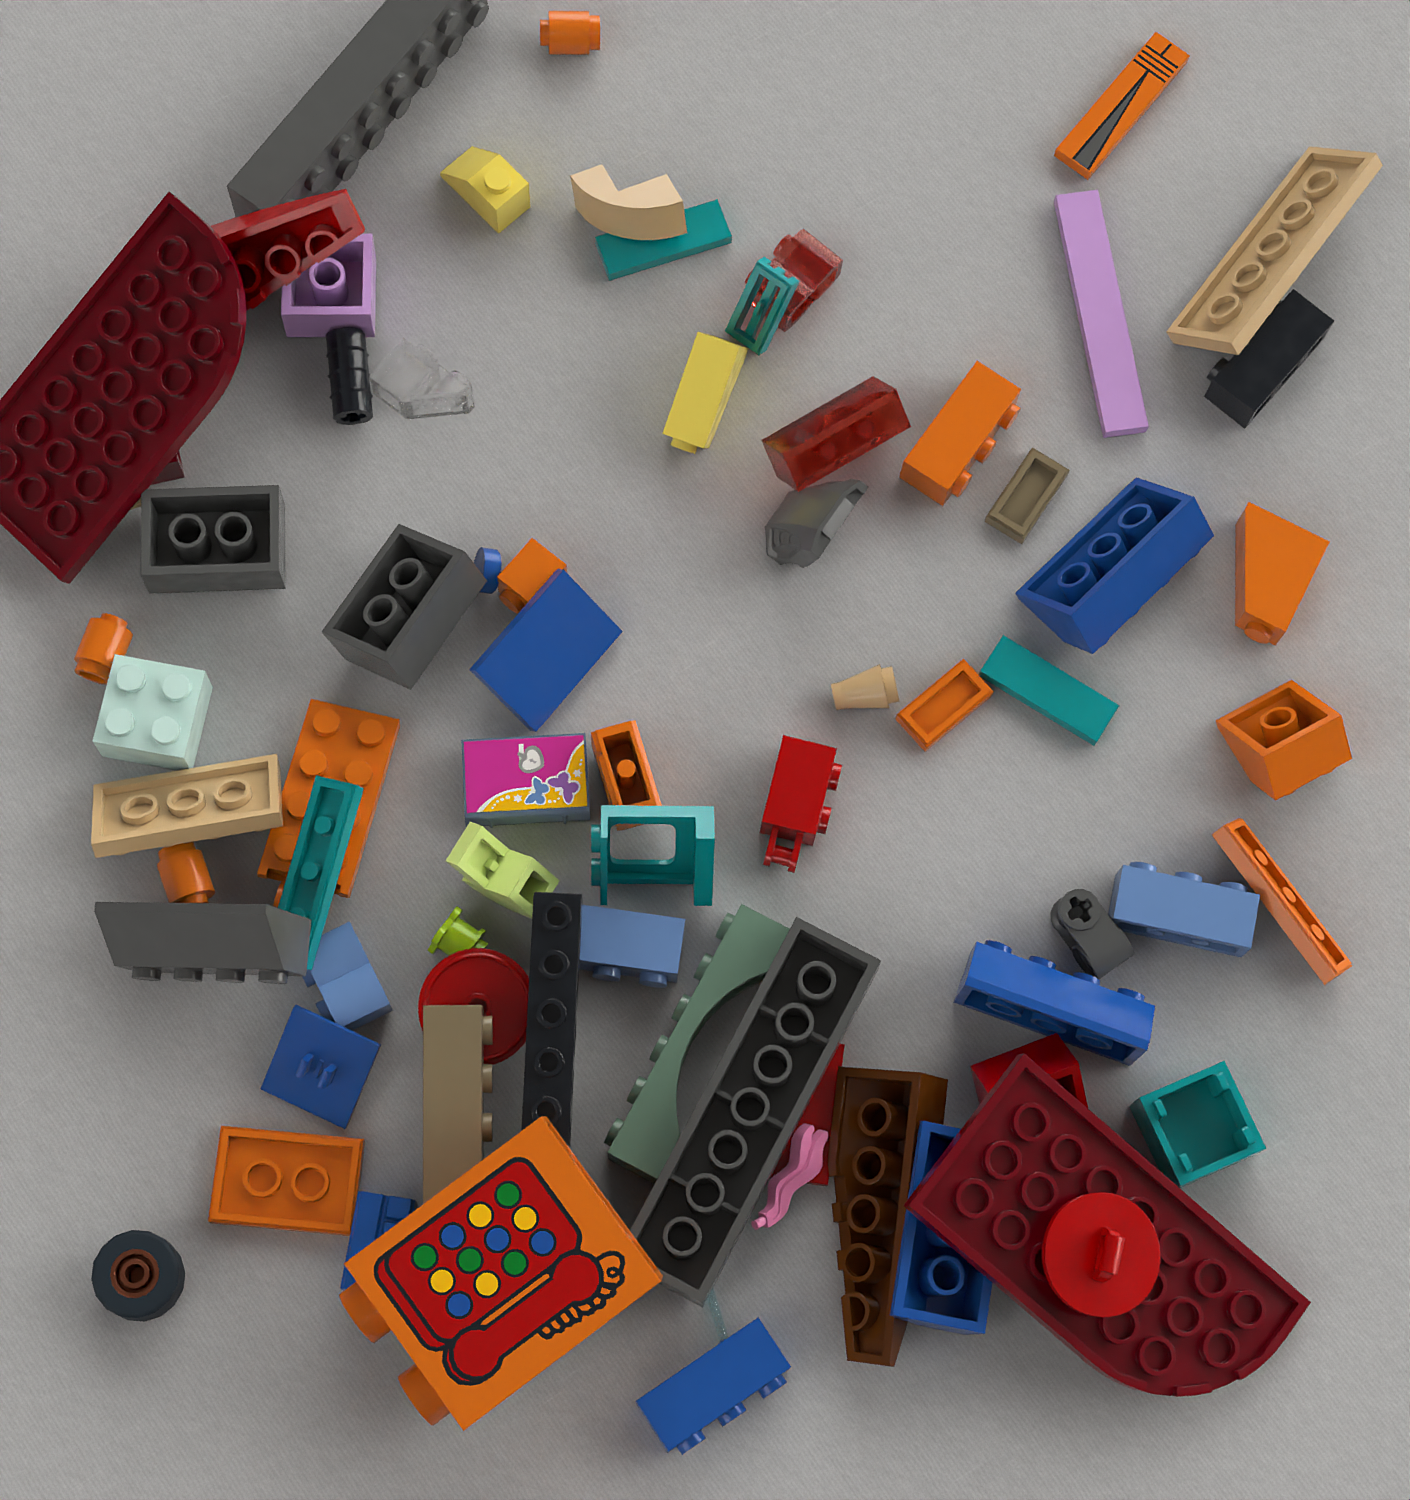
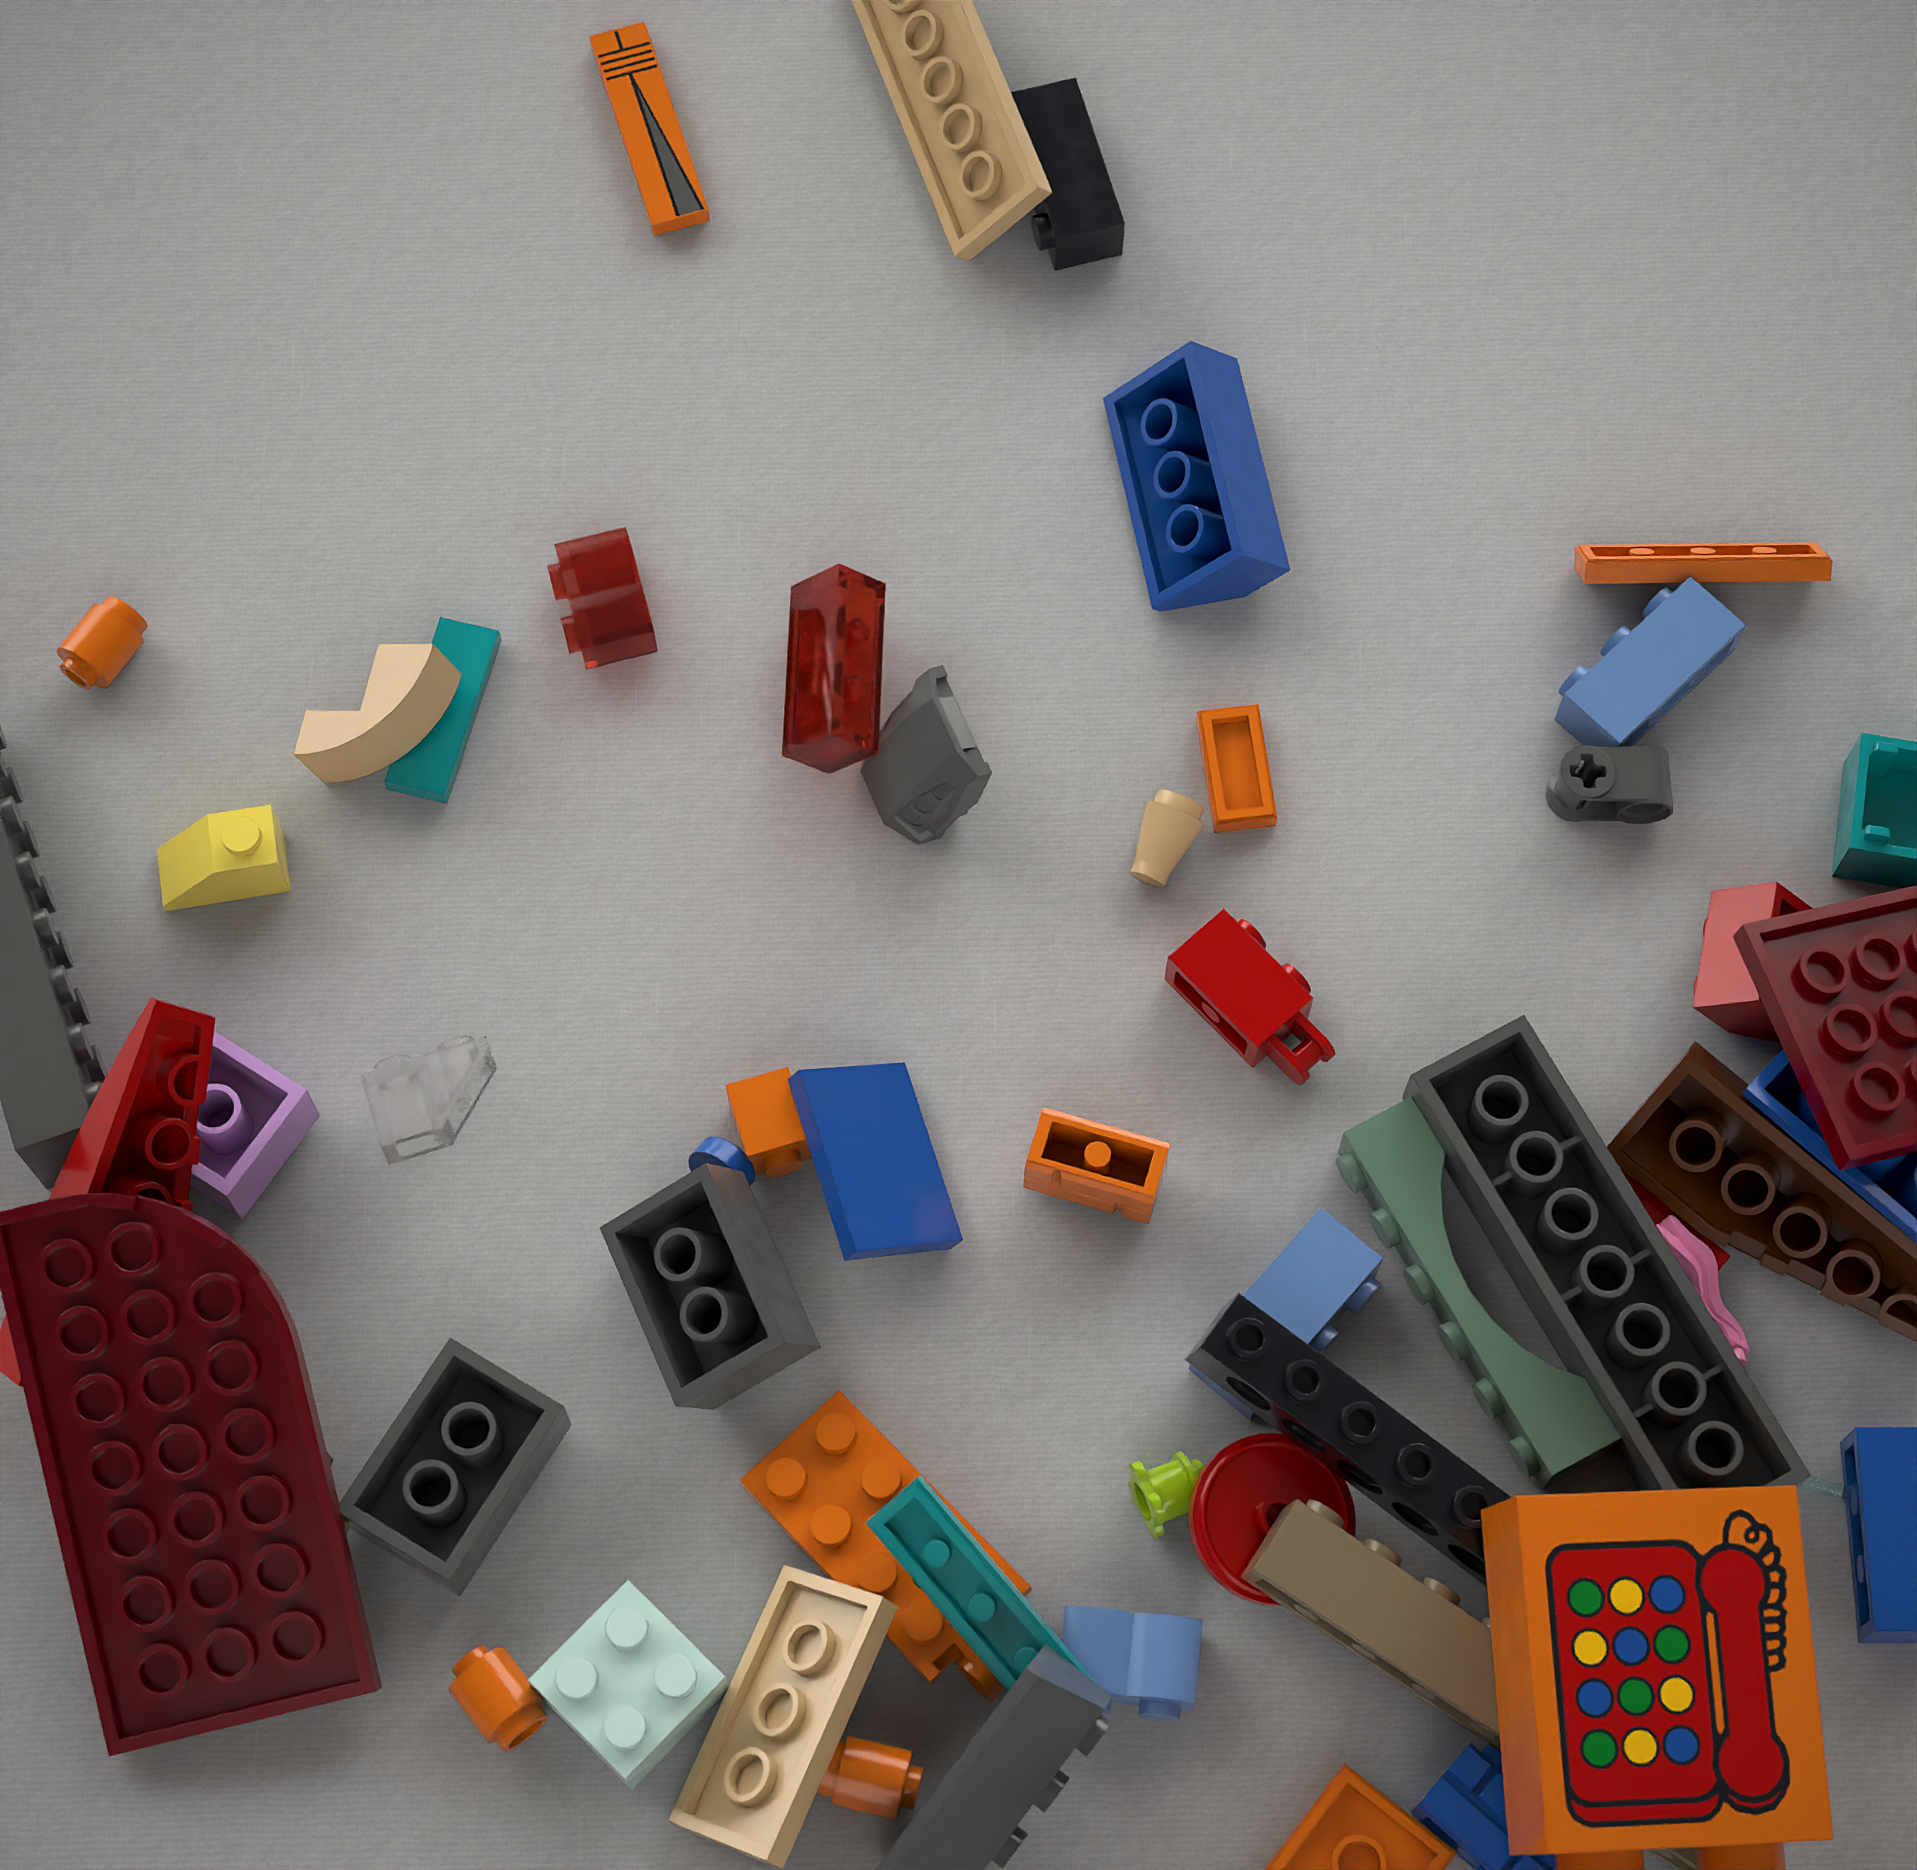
camera: 50 degrees left, 5 degrees down
(320, 1066) = (1223, 1758): blue piece -> none
(349, 376) = (353, 1174): black axle -> none
(499, 872) = (1123, 1385): yellowish green brick -> none
(525, 780) = (1017, 1289): piece -> none
(693, 850) = (1250, 1150): teal window -> none
(703, 391) = (676, 779): light yellow slope -> none
(776, 279) = (605, 605): teal tile -> none
(961, 434) = (927, 540): orange brick -> none
(1027, 495) = (1045, 522): dark tan tile -> none
(1048, 690) = (1294, 647): teal tile -> none
(1054, 1002) = (1675, 869): blue slope -> none
(1100, 314) = (882, 308): lavender tile -> none
(1271, 571) = (1317, 331): orange slope -> none
(1285, 739) = (1518, 440): orange slope -> none

